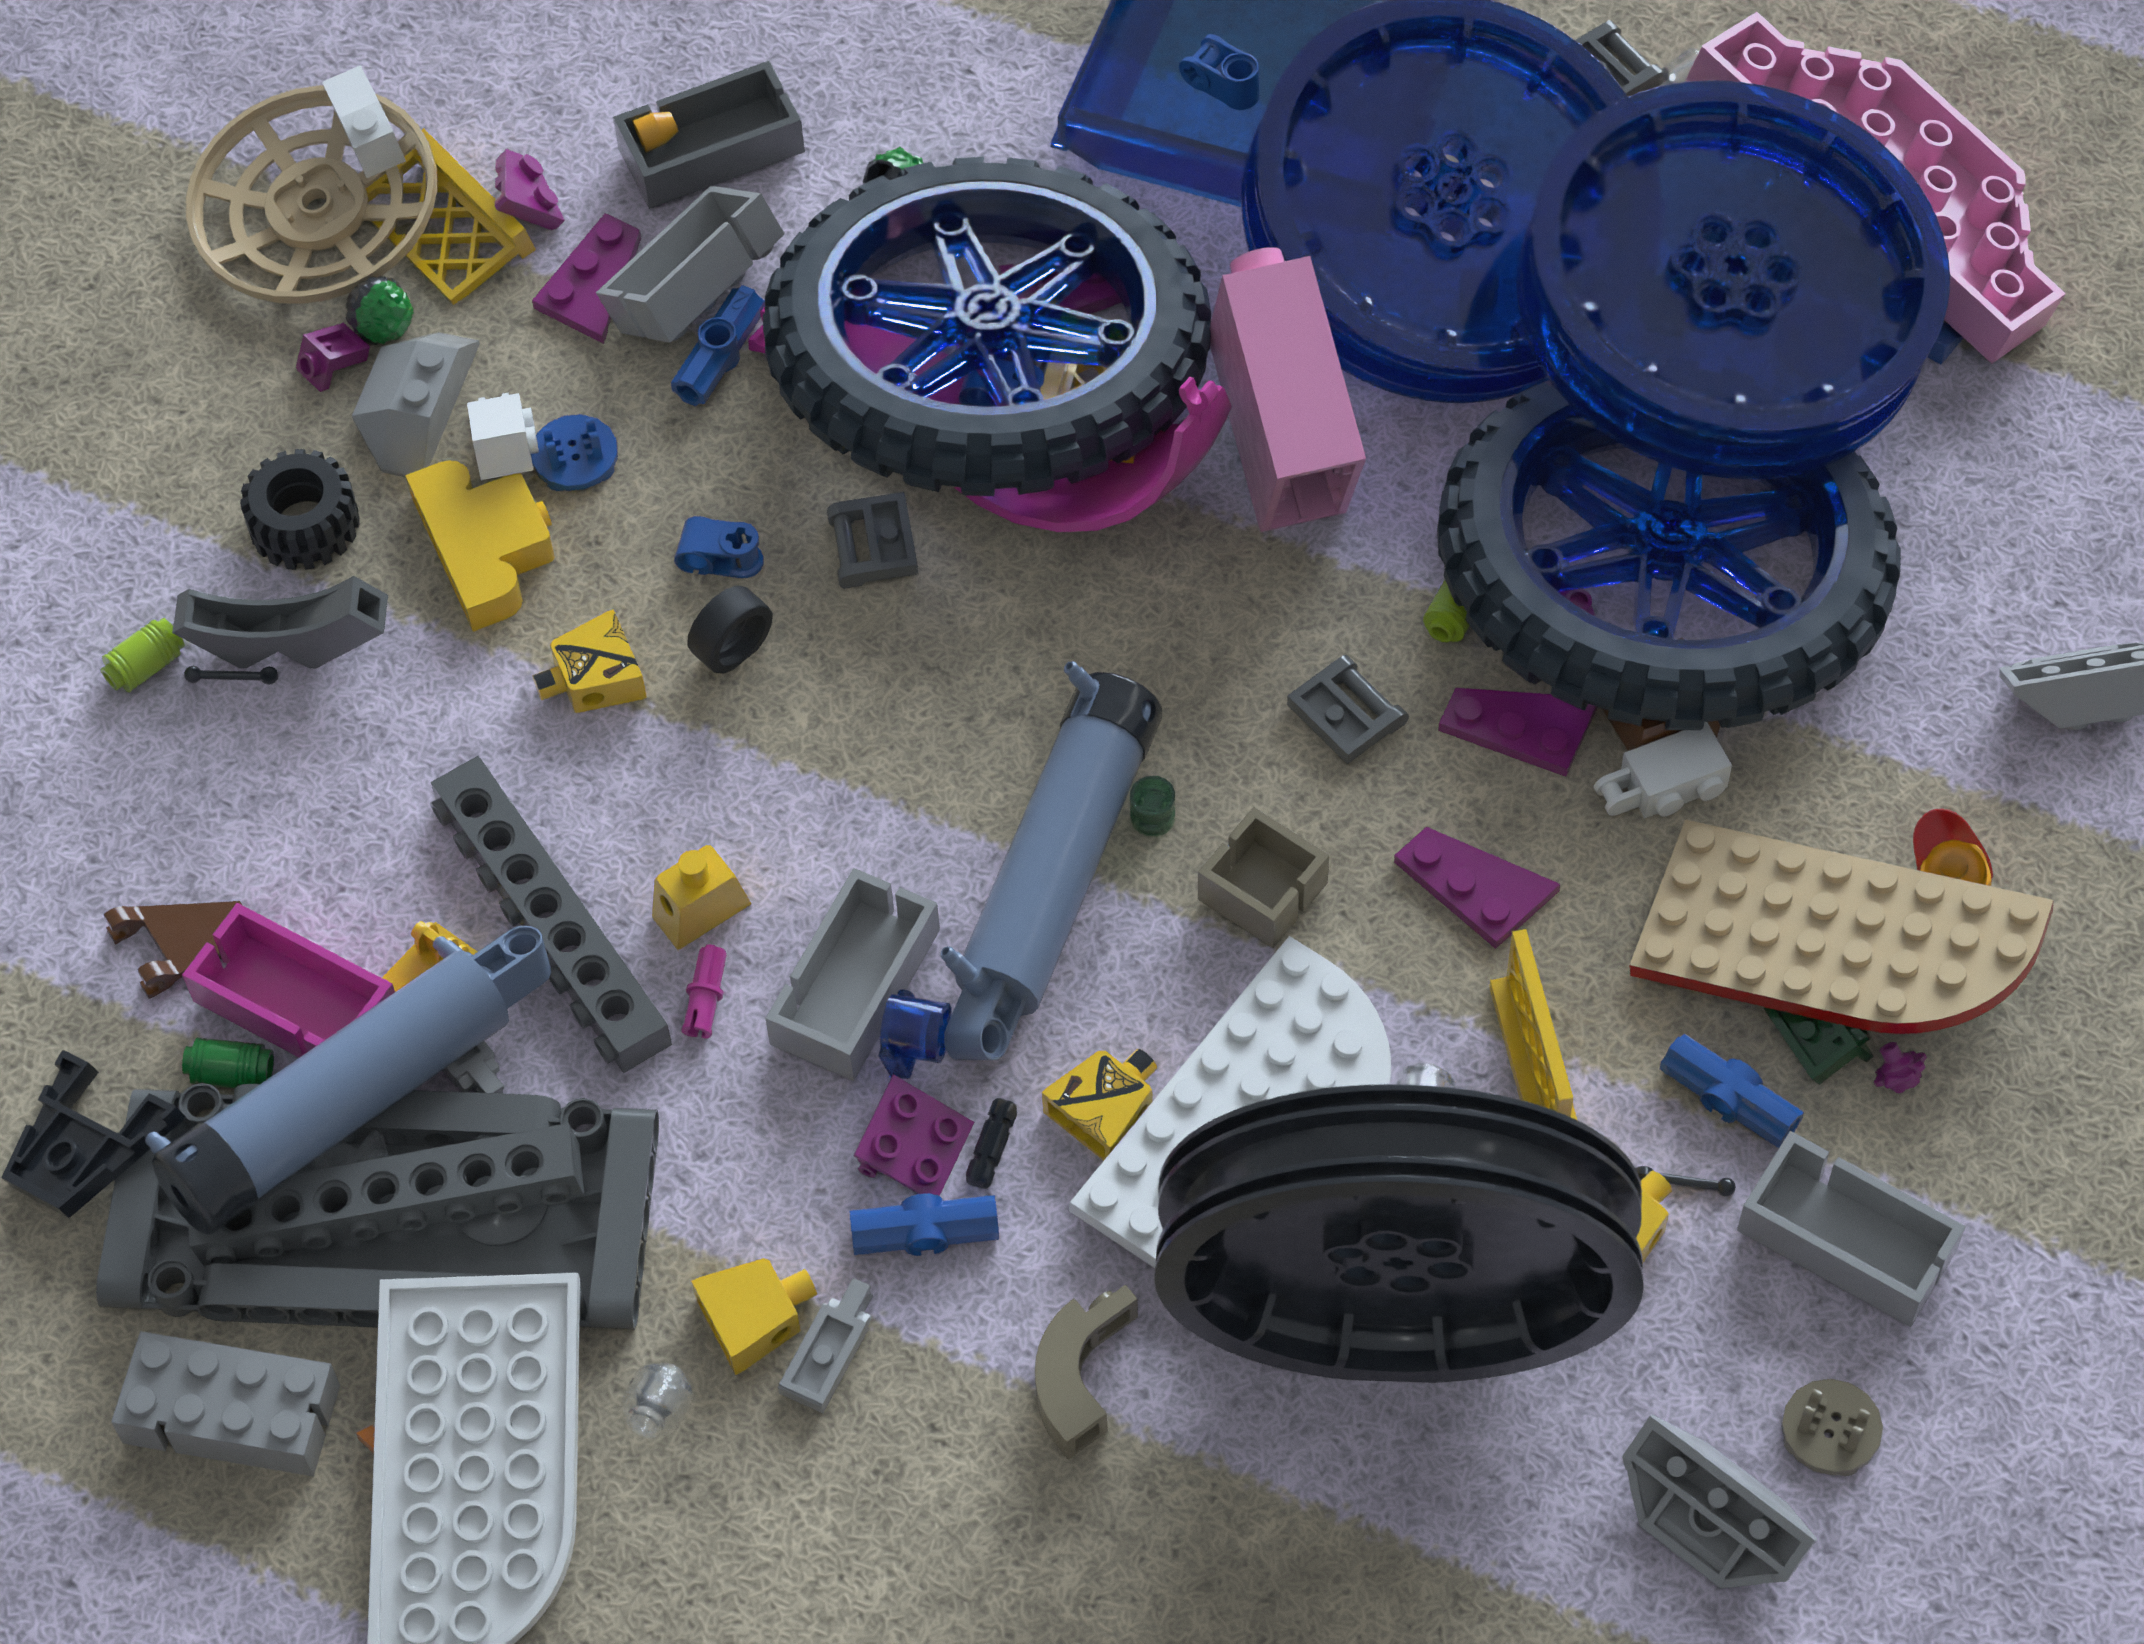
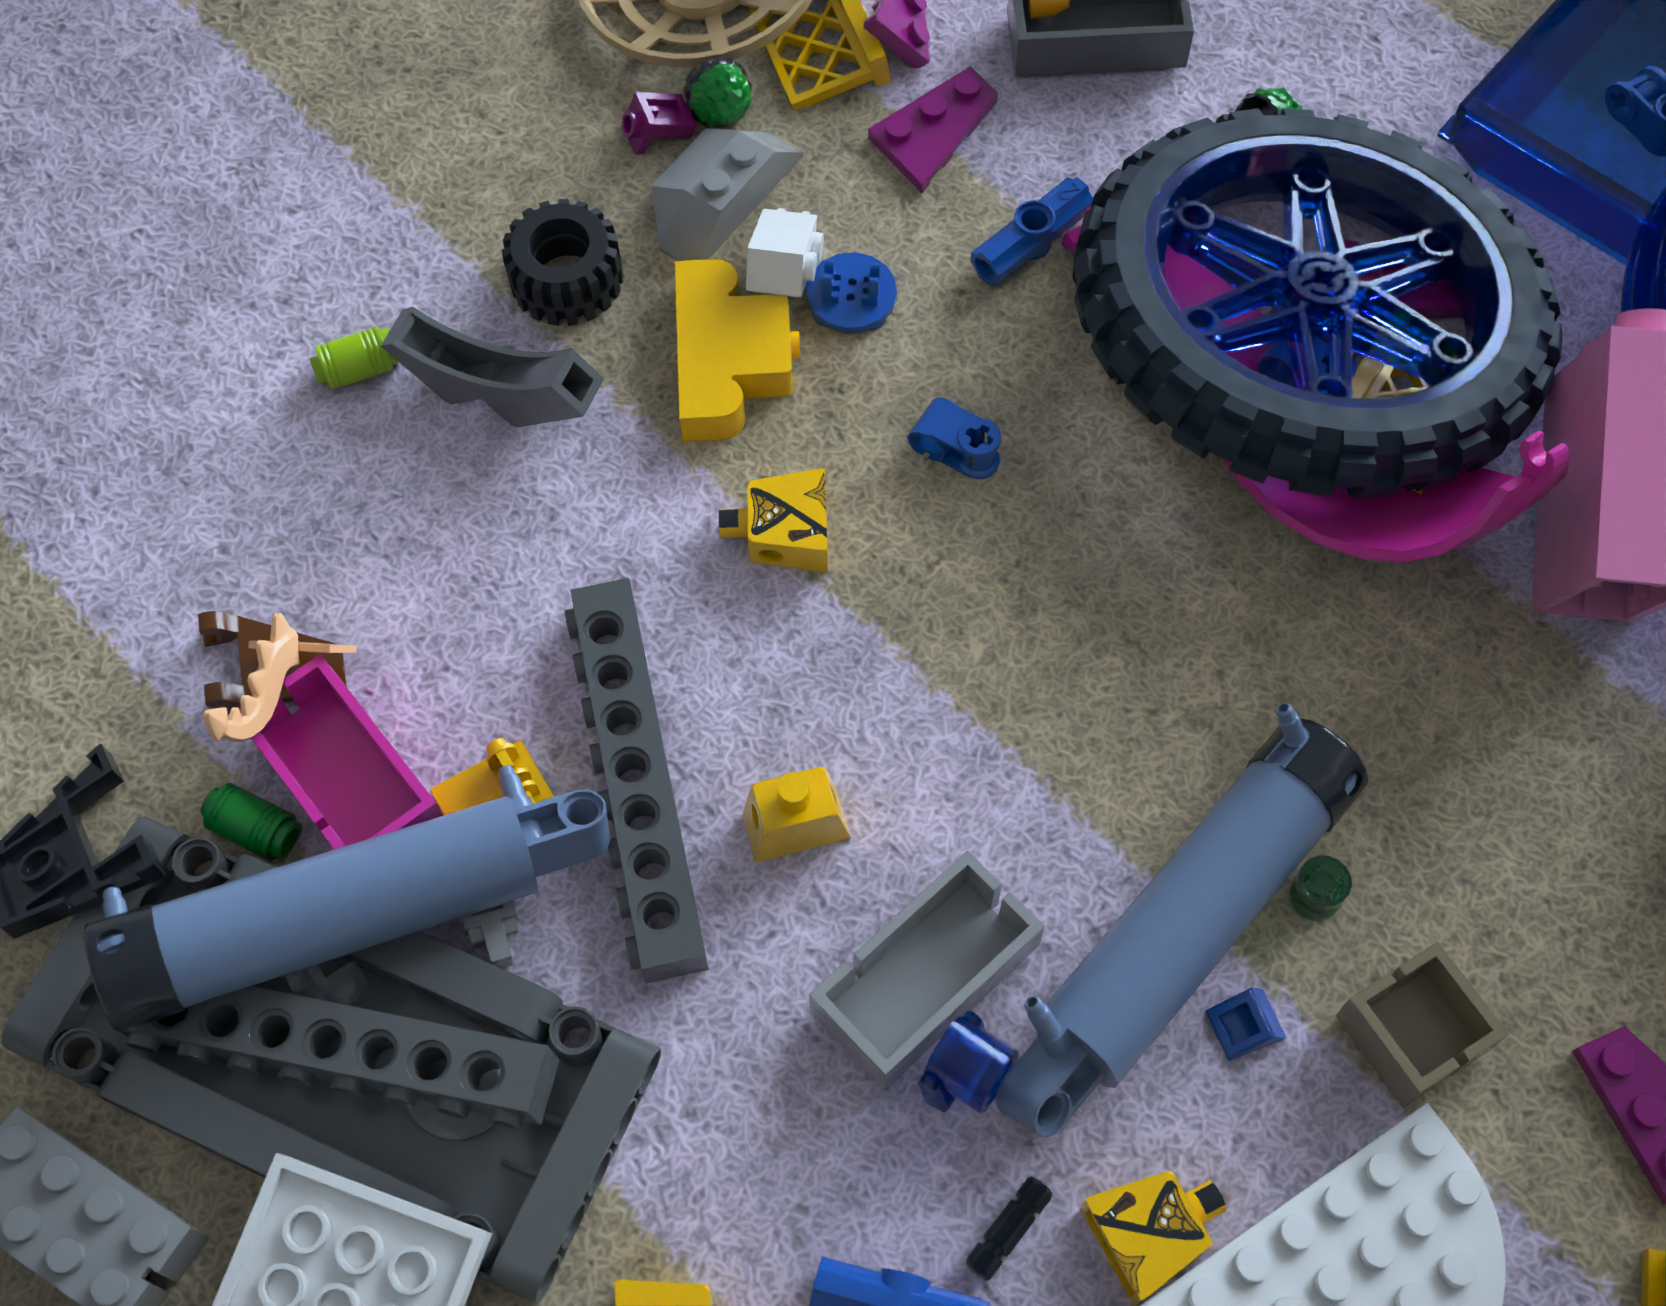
camera: 20 degrees right, 5 degrees up
(204, 915) = (266, 683): none -> light nougat piece
(267, 675) = (468, 418): black hinge -> none
(690, 264) = (1034, 140): light grey piece -> none
(704, 991) = (763, 924): dark pink axle -> none
(729, 629) = (935, 530): black tyre -> none
(887, 537) = (1133, 486): dark grey plate -> none
(912, 1139) = (923, 1192): magenta hinge -> none
(1127, 930) = (1245, 1023): none -> blue slope
(1338, 717) = (1559, 857): dark grey plate -> none

